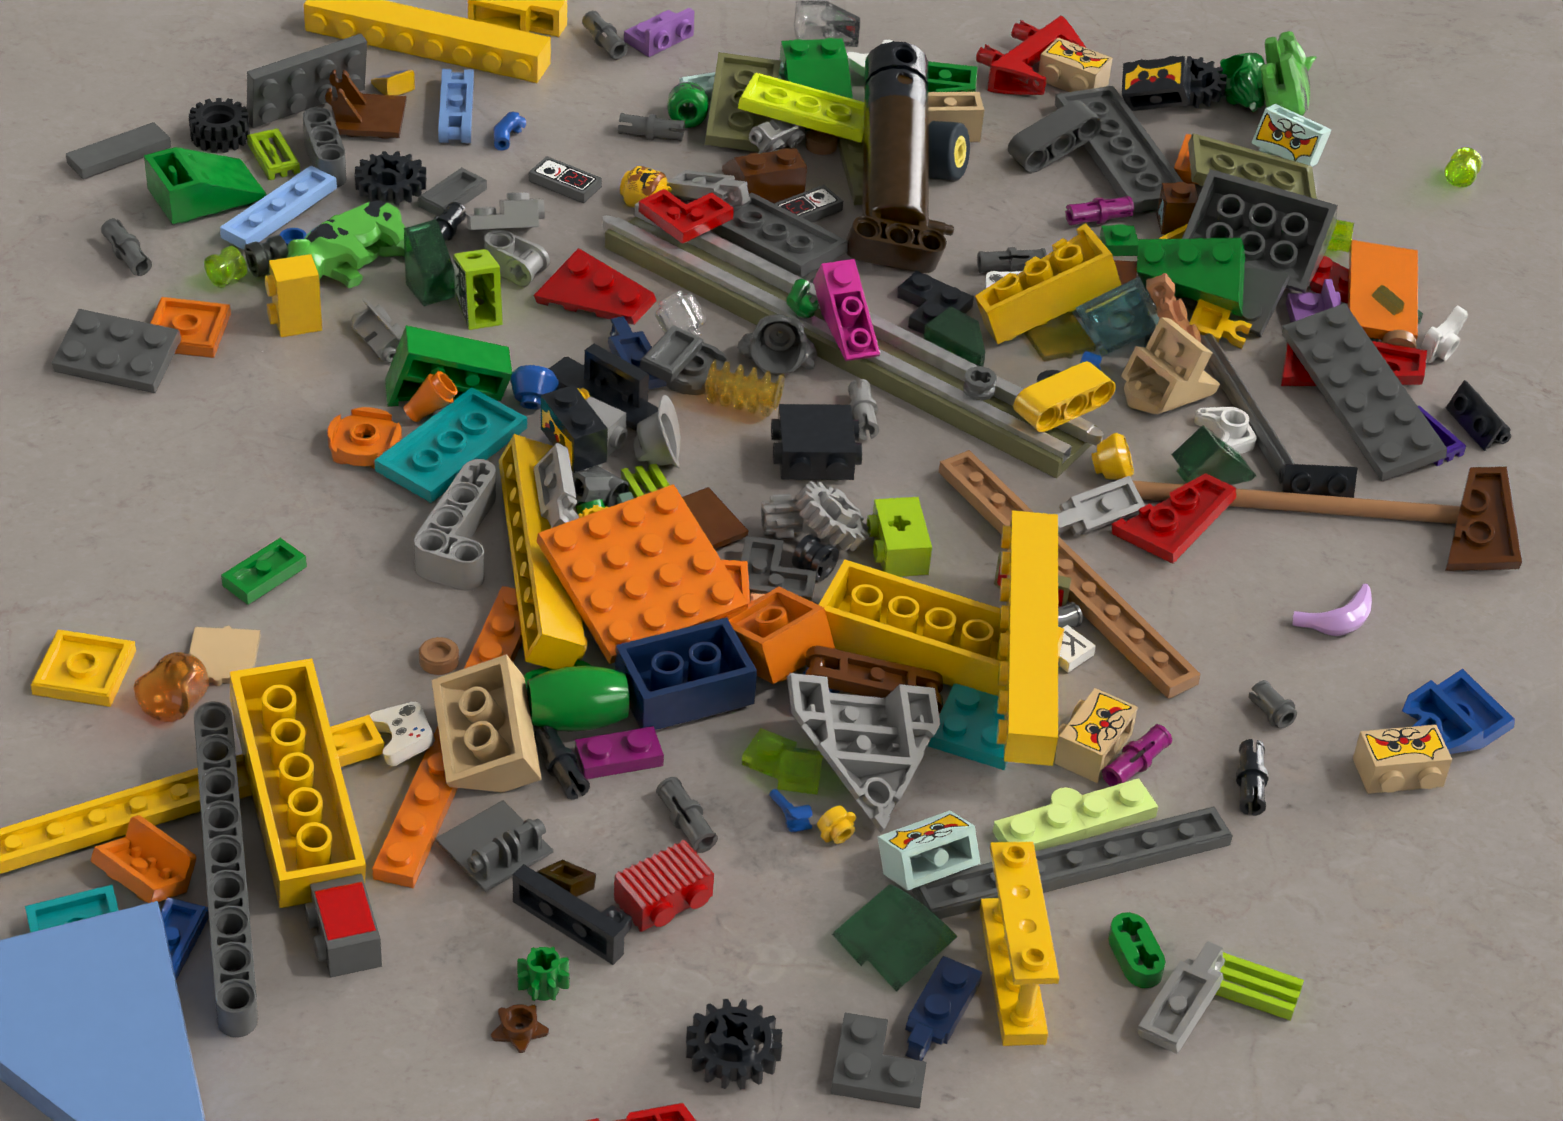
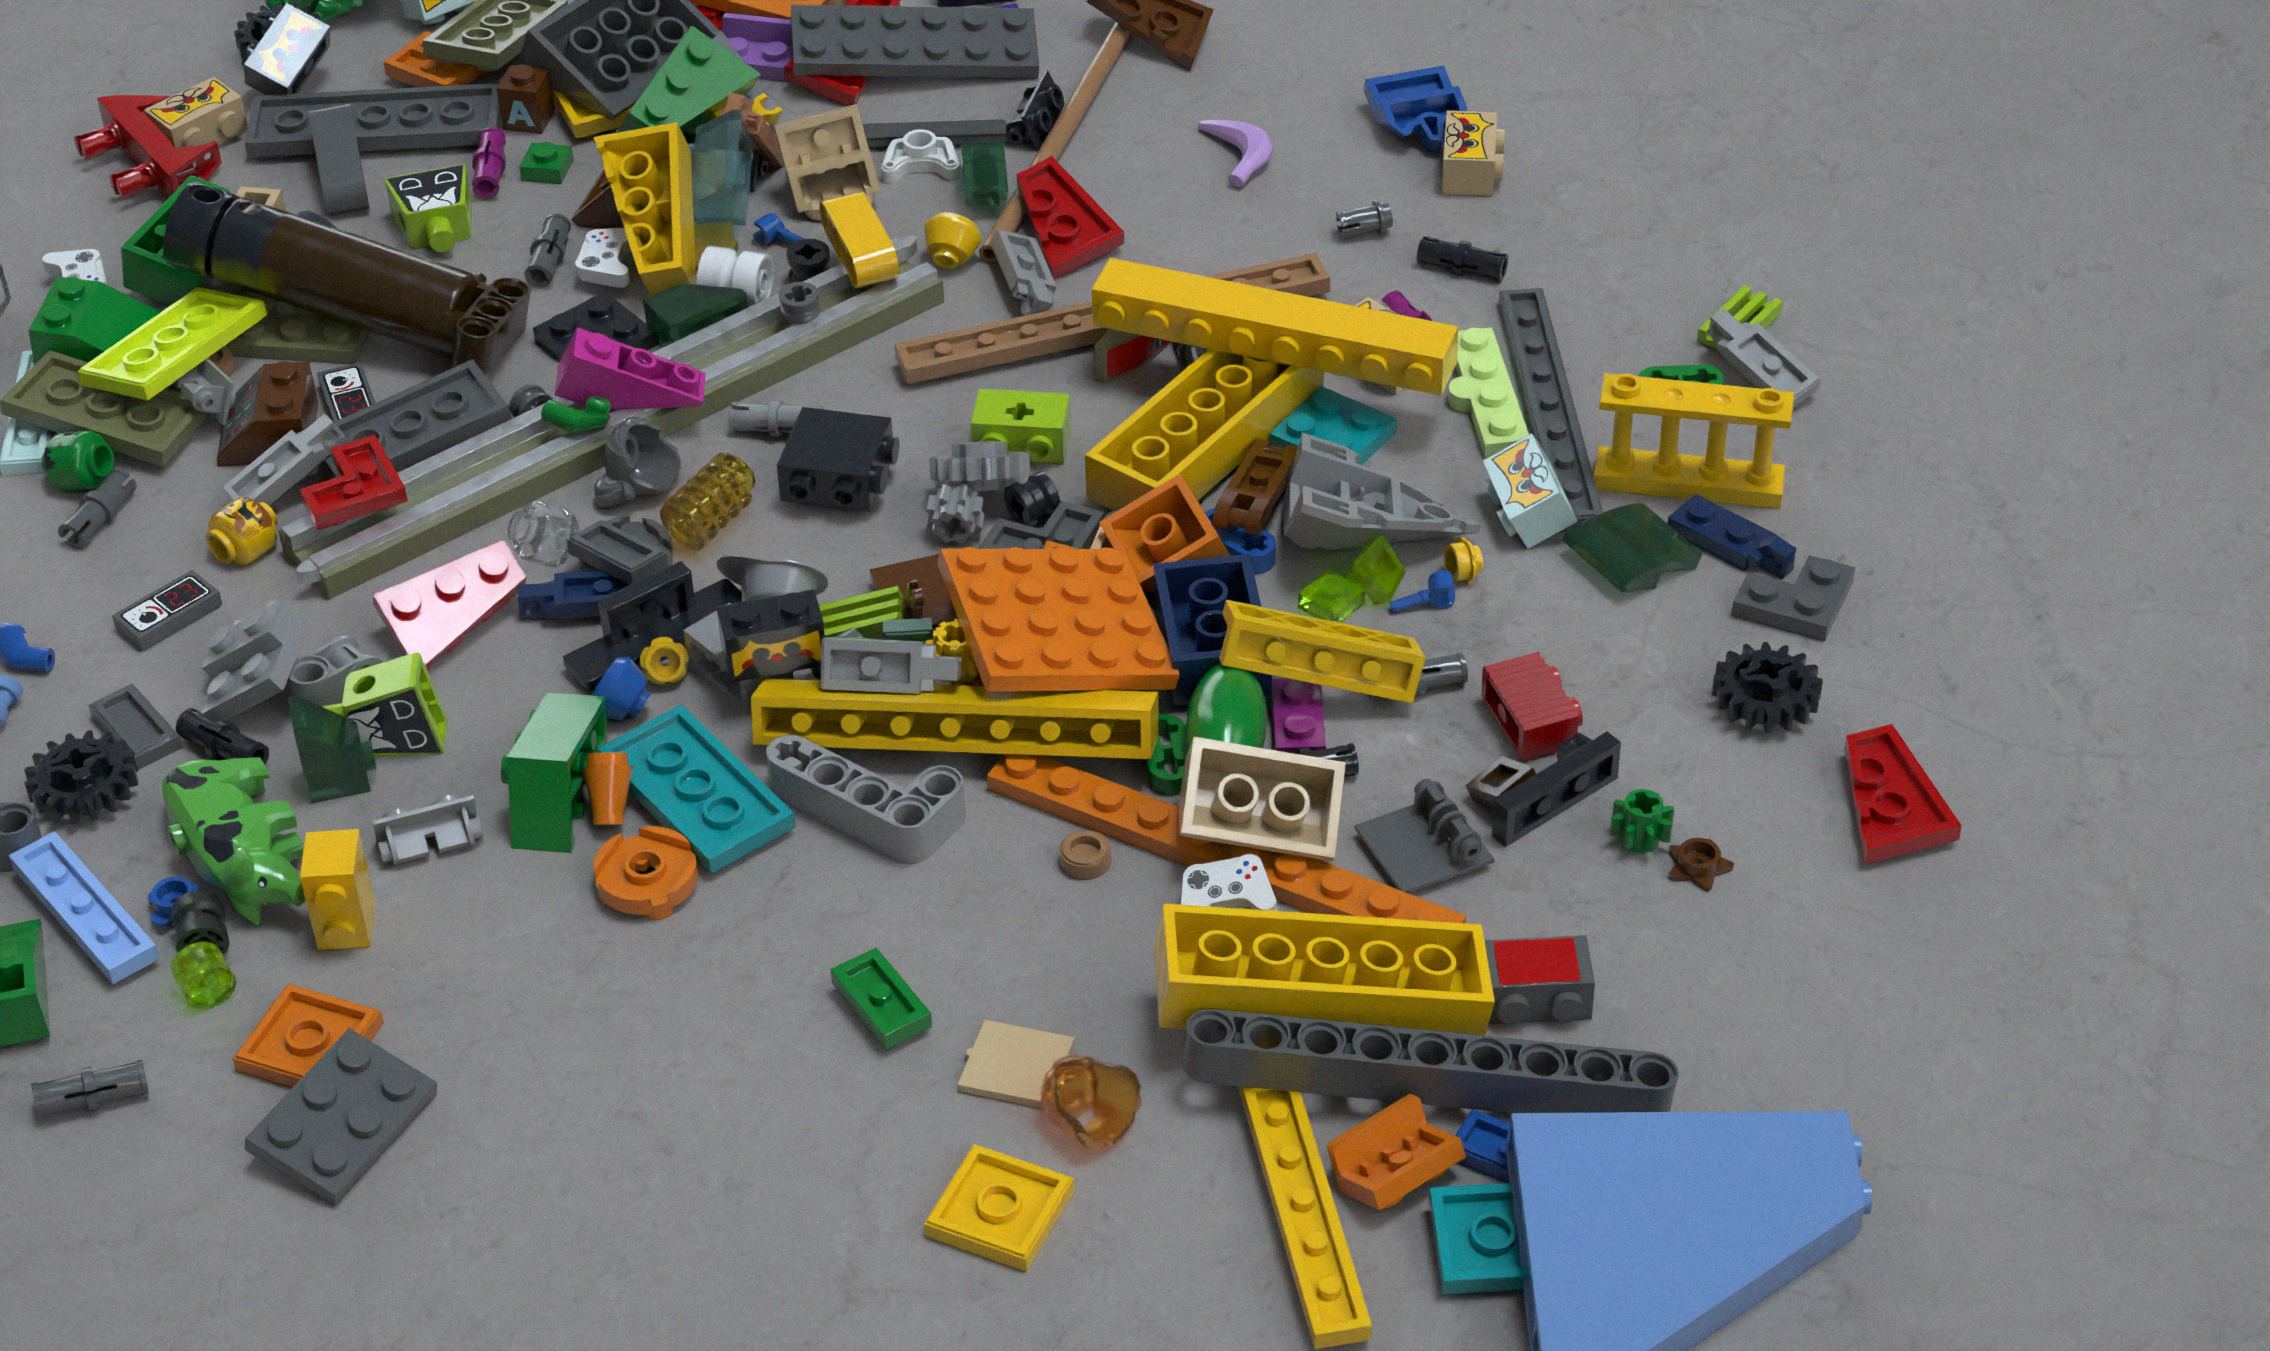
camera: 70 degrees left, 0 degrees up
(652, 727) = (1321, 651): none -> yellow fence
(1011, 351) = (747, 271): none -> white wheel
(1029, 195) = (432, 207): none -> torso

